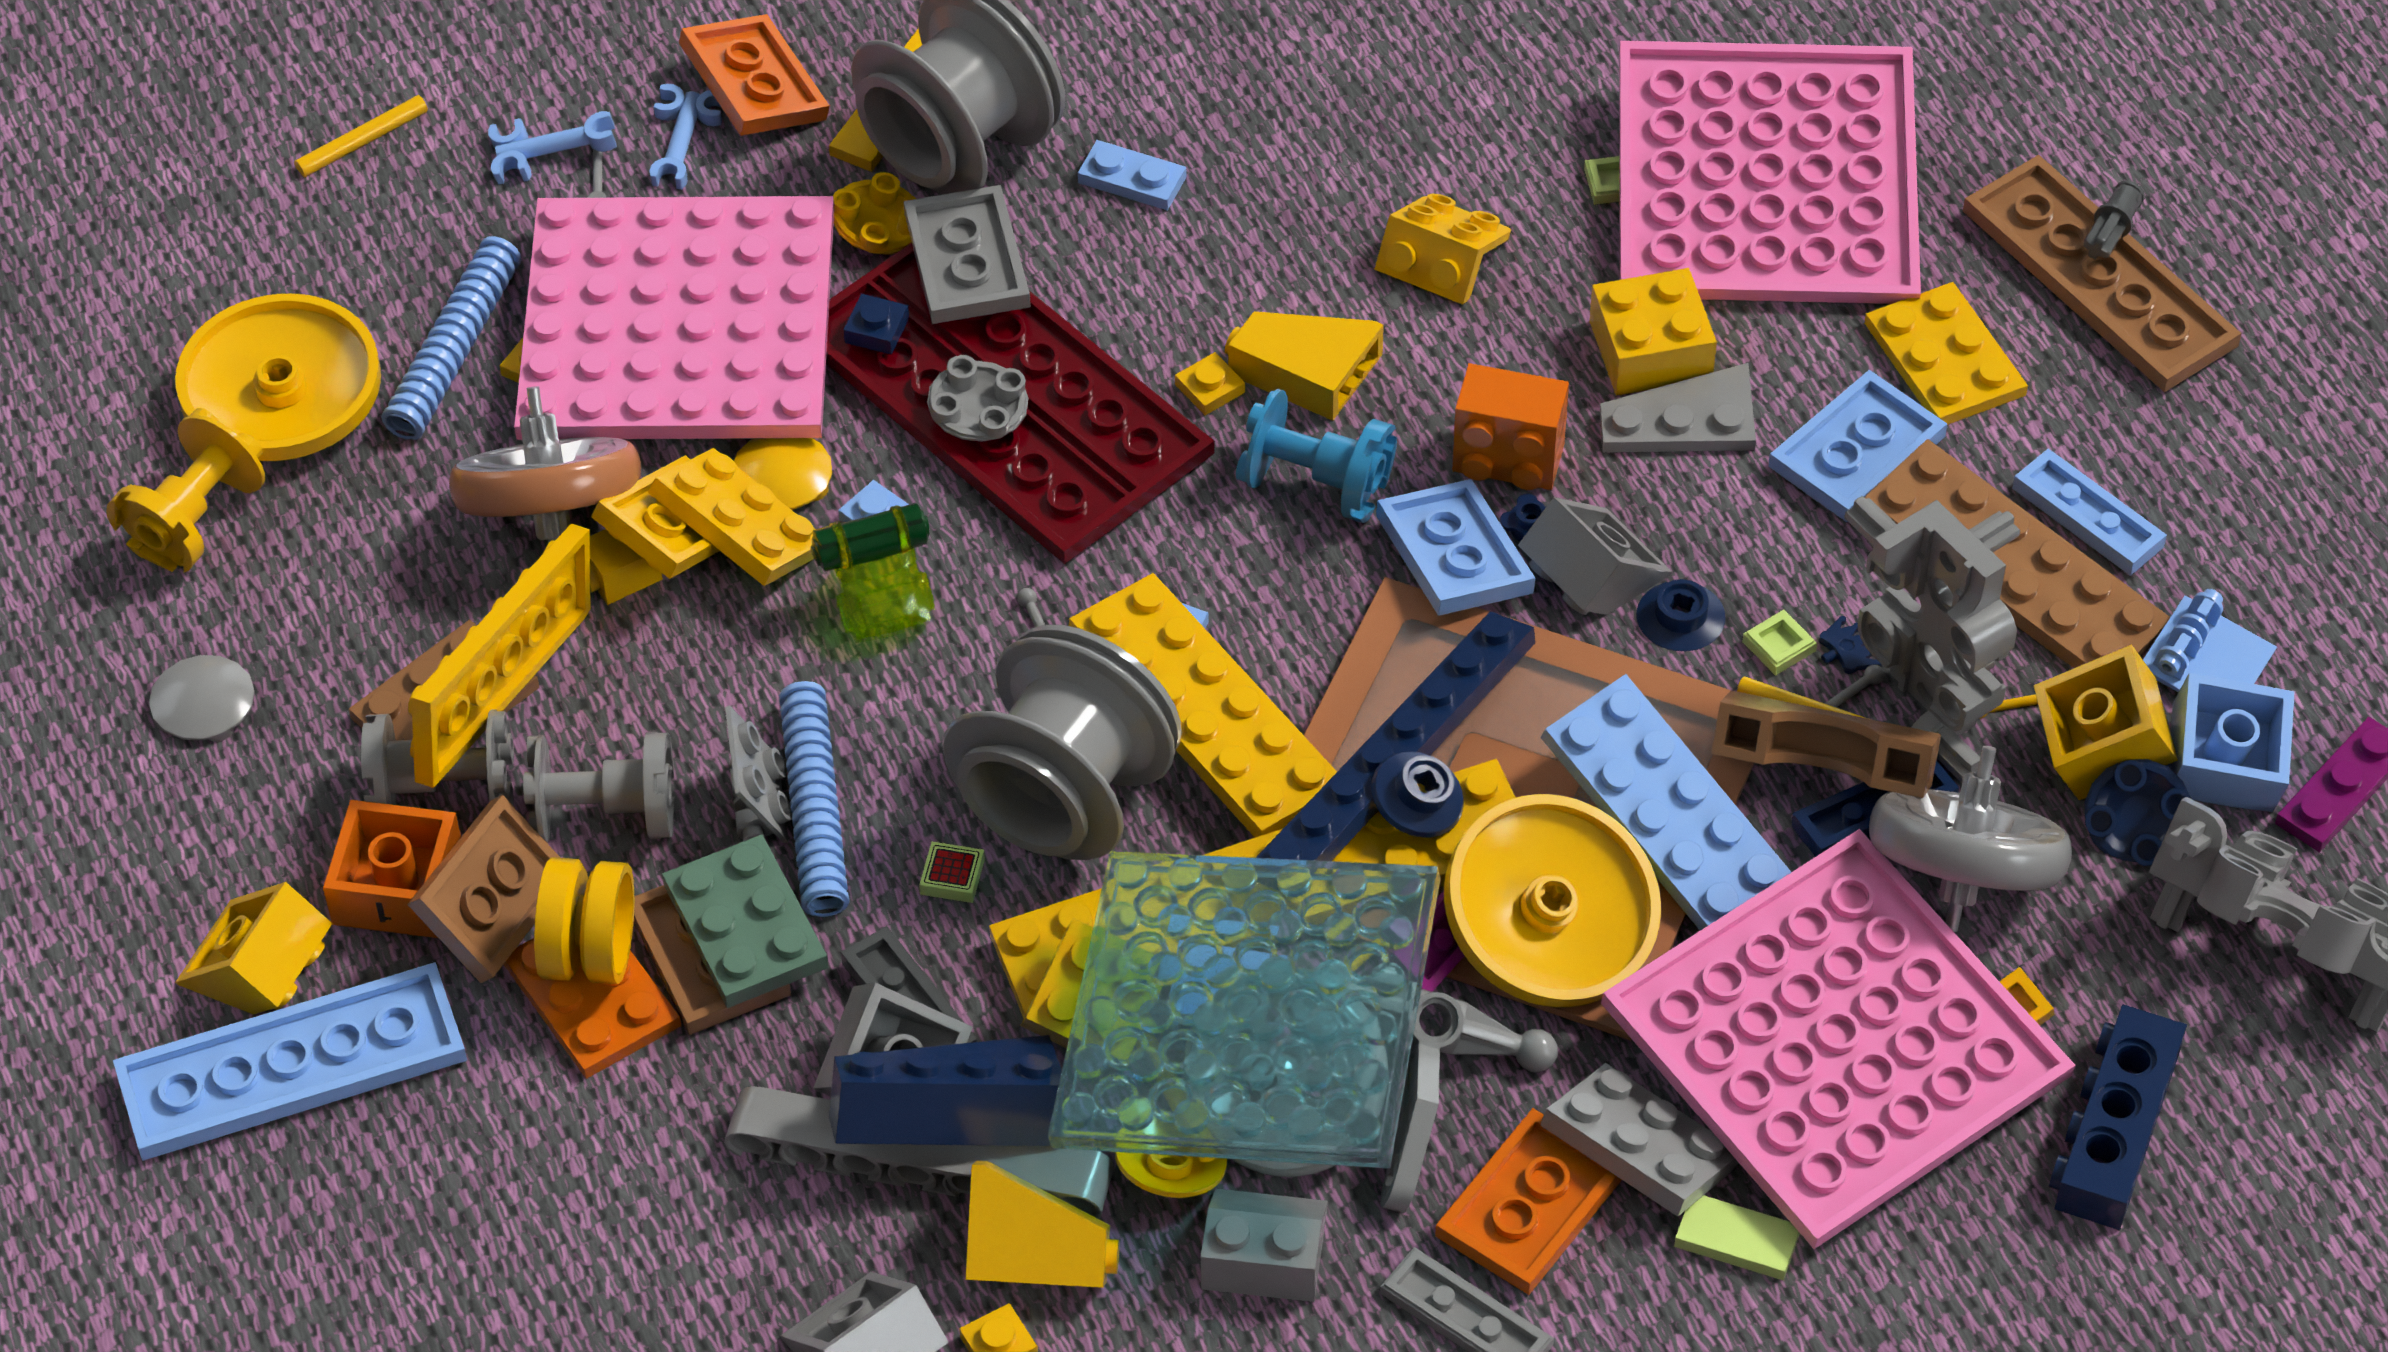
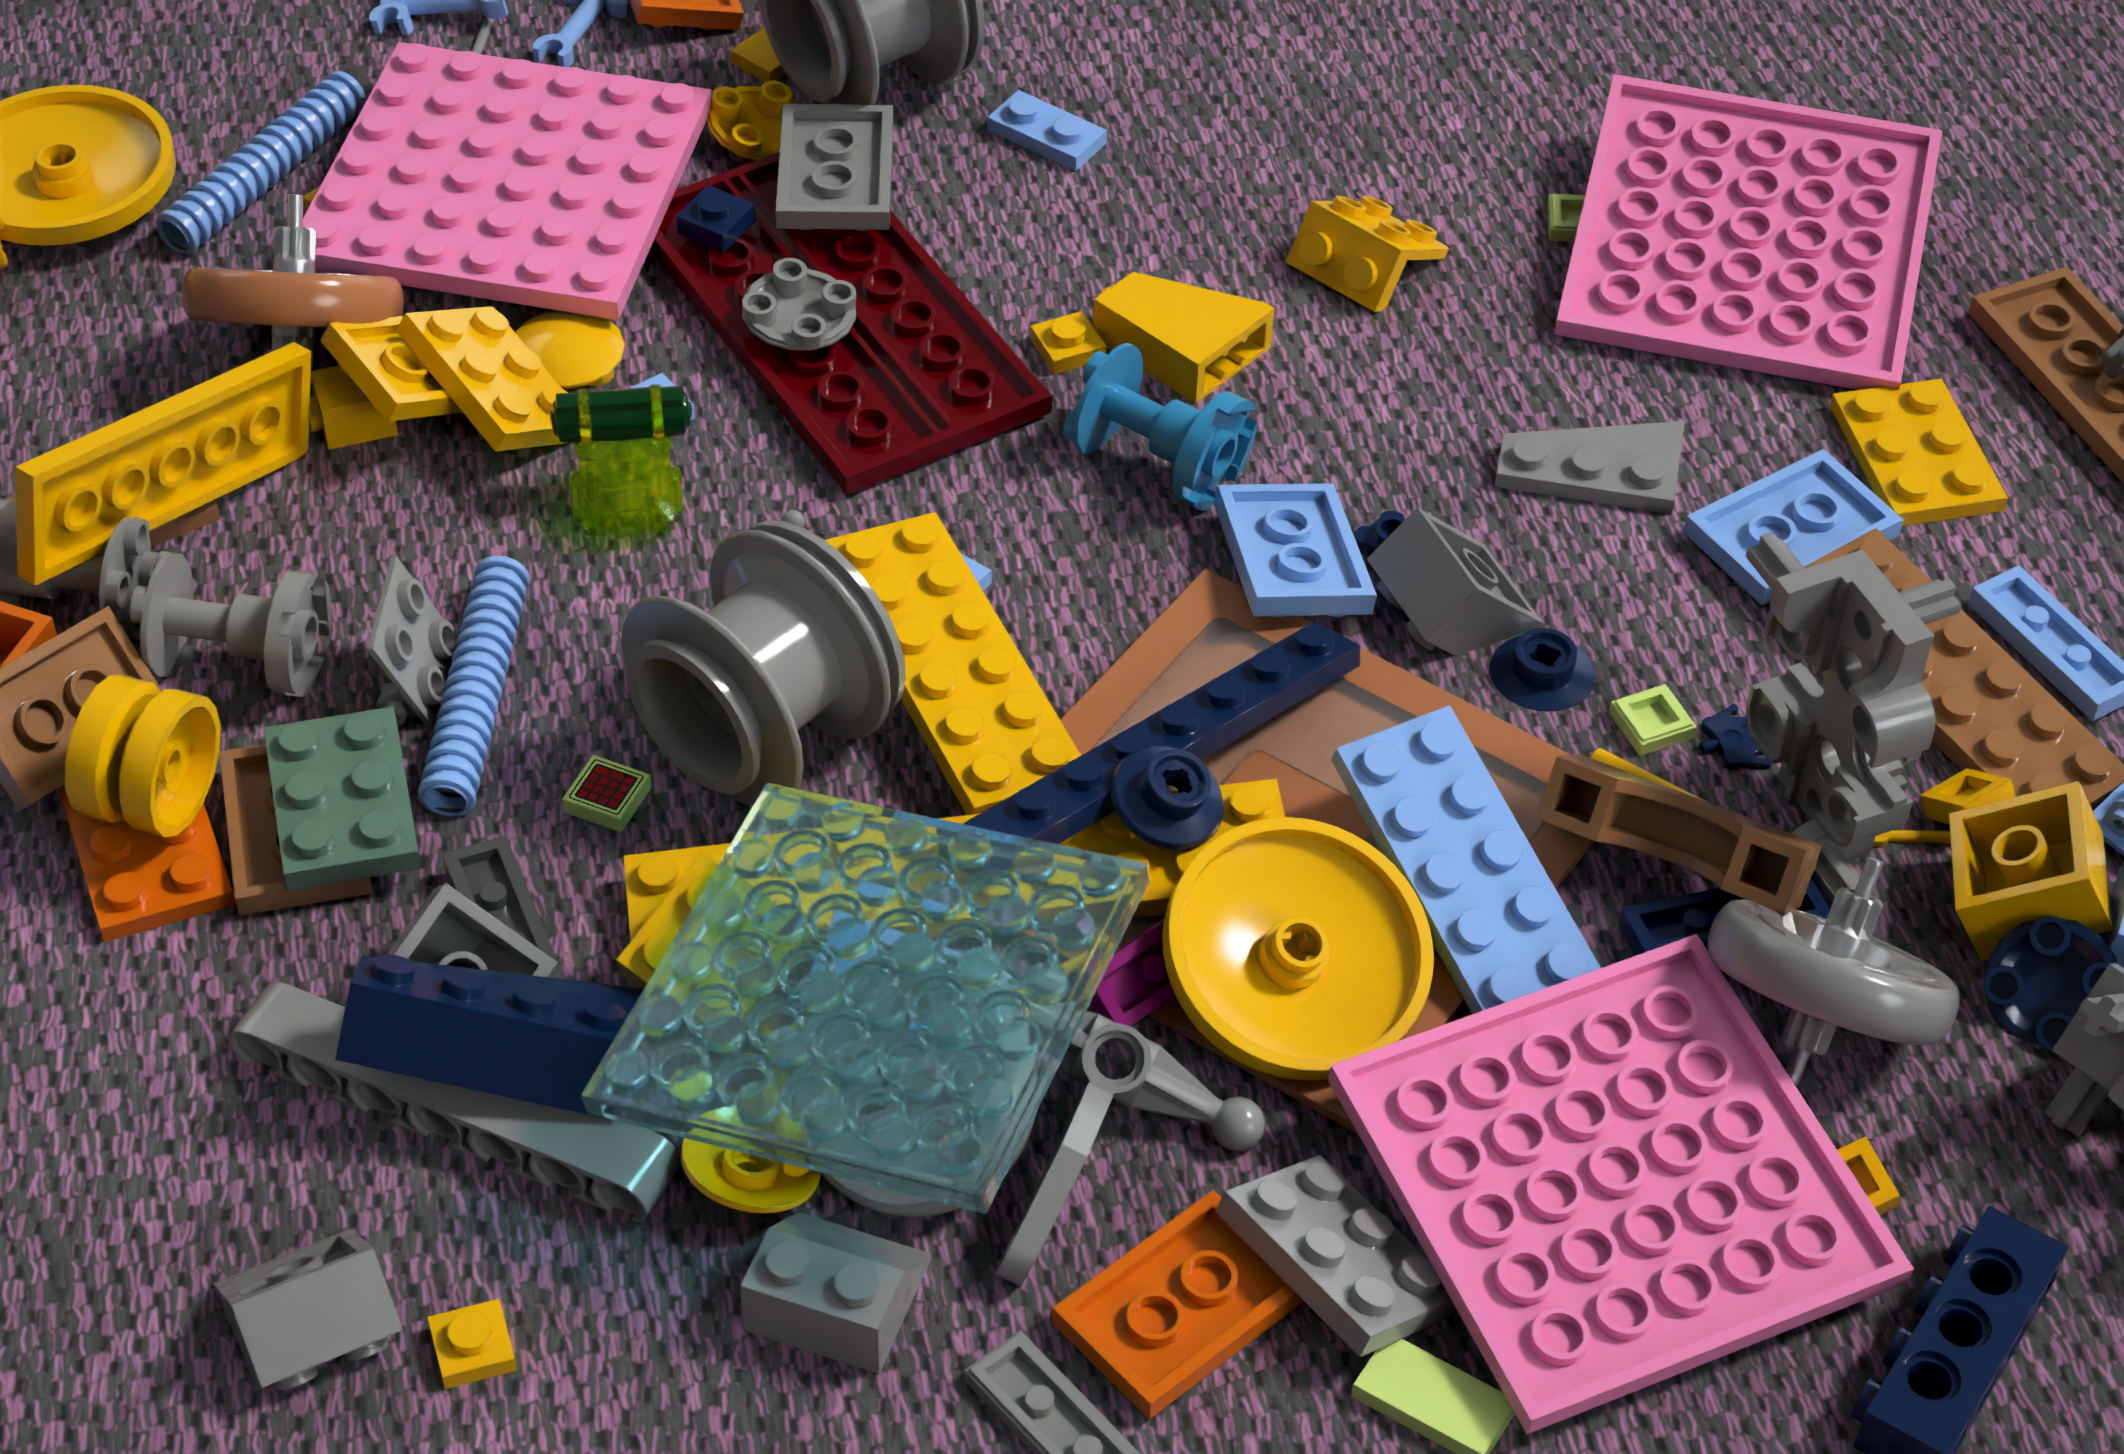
camera: 10 degrees right, 5 degrees down
(1032, 1235) = (546, 1218): yellow slope -> none
(1510, 427) = (1389, 432): orange brick -> none
(1652, 330) = (1580, 367): yellow brick -> none
(1873, 675) = (1756, 775): light grey hinge -> none
(2043, 661) = (1965, 791): none -> yellow plate

